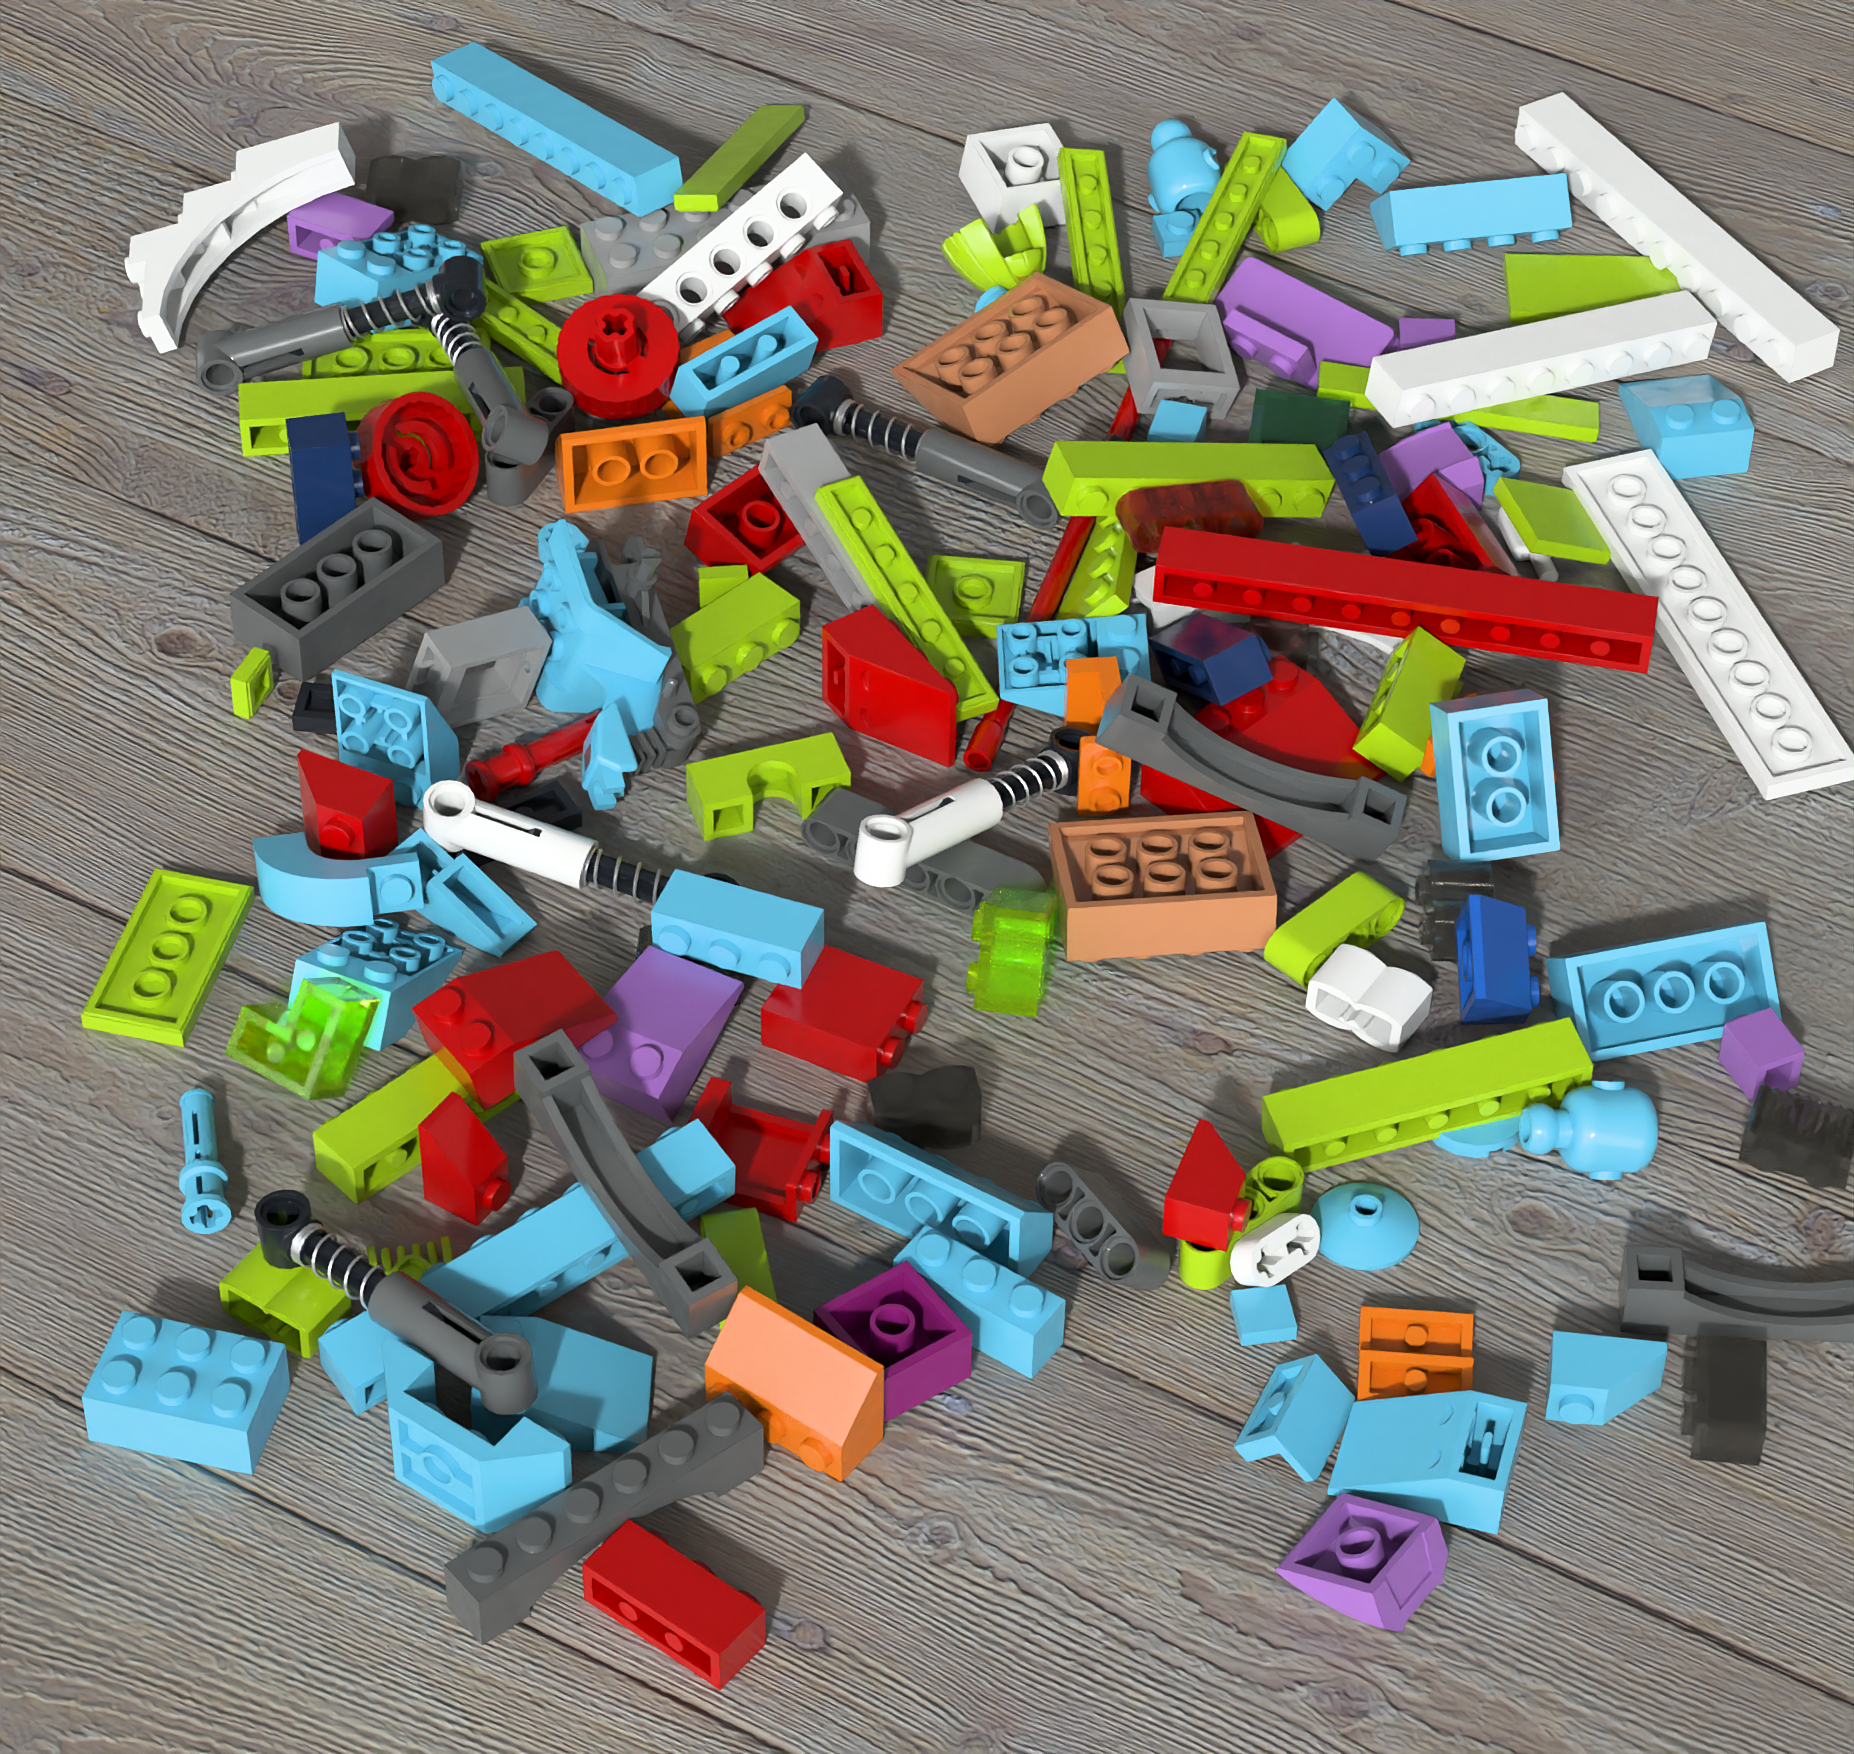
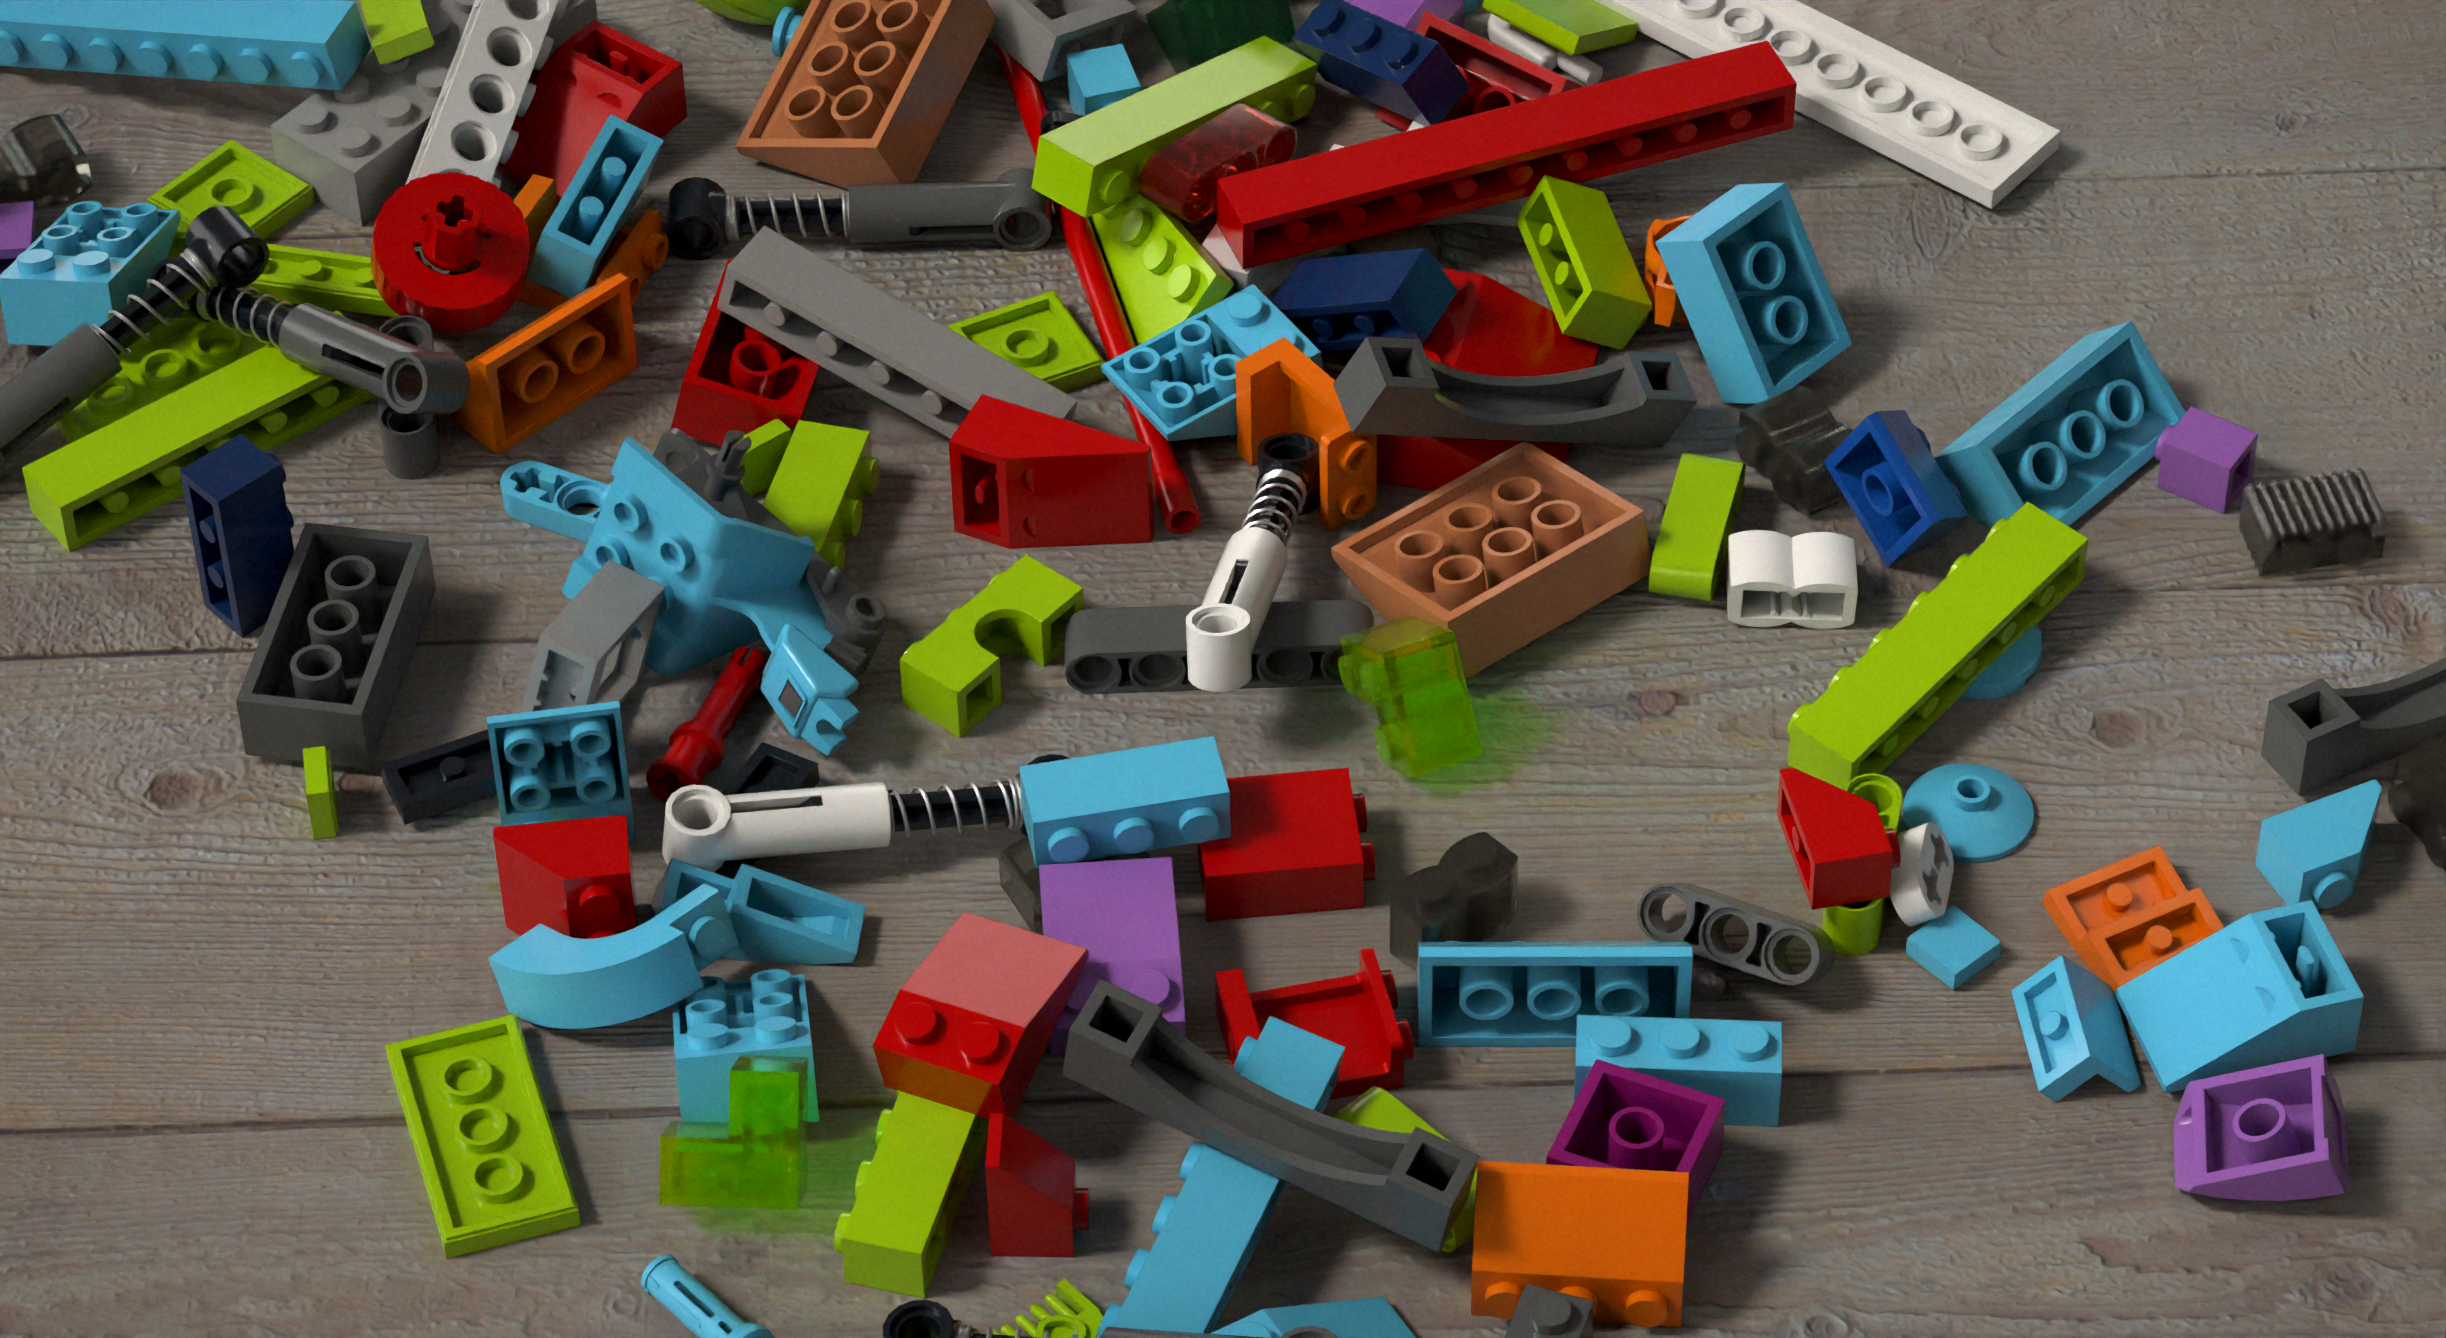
camera: 30 degrees left, 0 degrees up
(398, 467) = (334, 466): red piece -> none
(903, 590) = (970, 357): lime tile -> none
(1595, 1129) = (2123, 606): medium azure piece -> none

